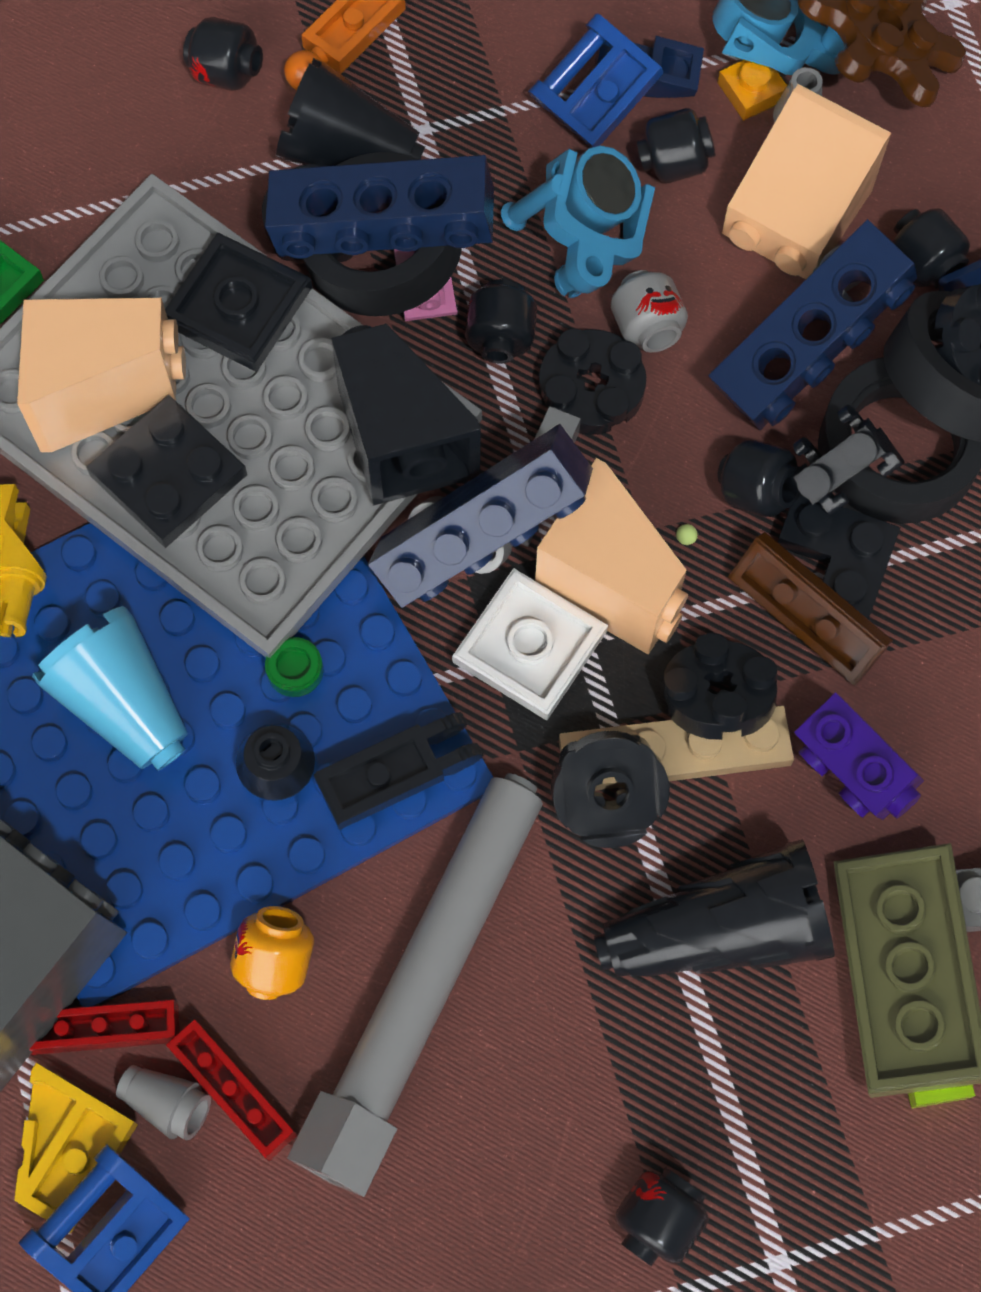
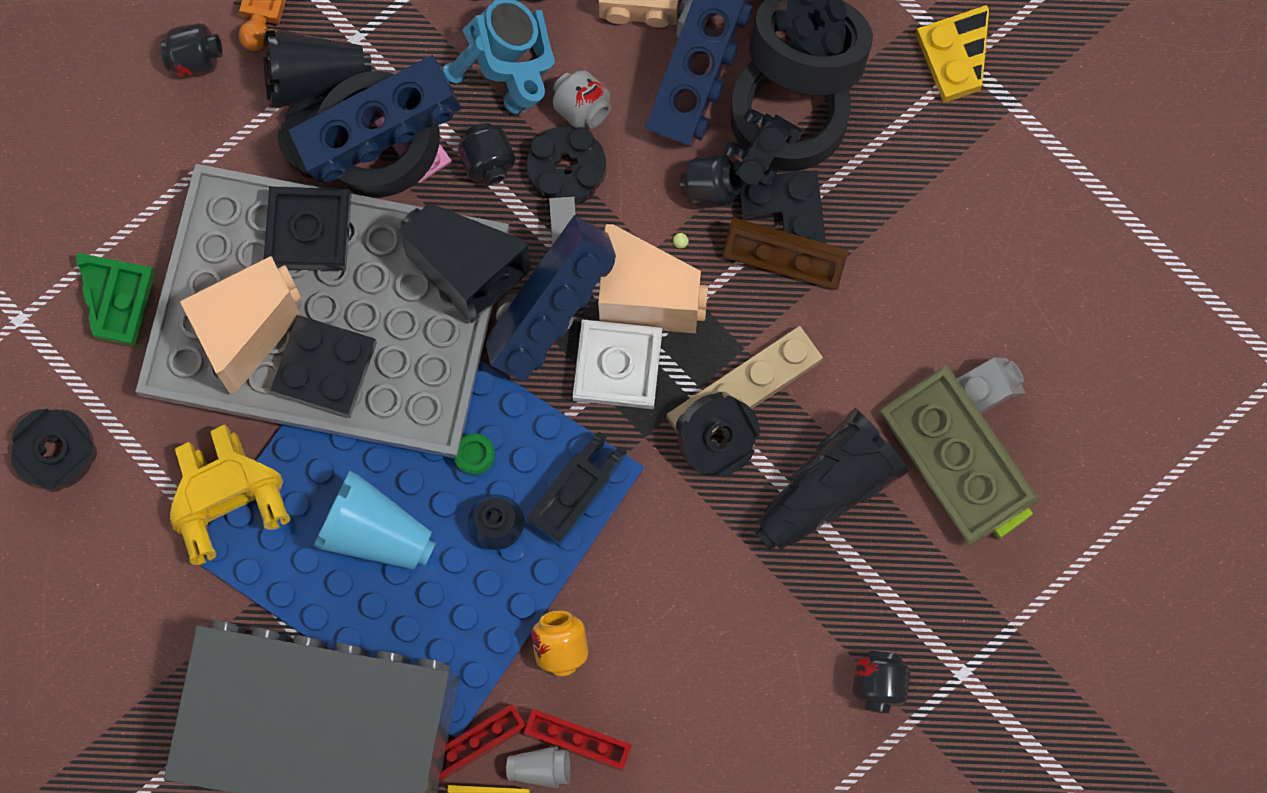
camera: 25 degrees left, 5 degrees up
(350, 1129) = (665, 726): light grey brick -> none
(727, 663) = (749, 315): black plate -> none
(863, 761) = (864, 337): dark purple brick -> none

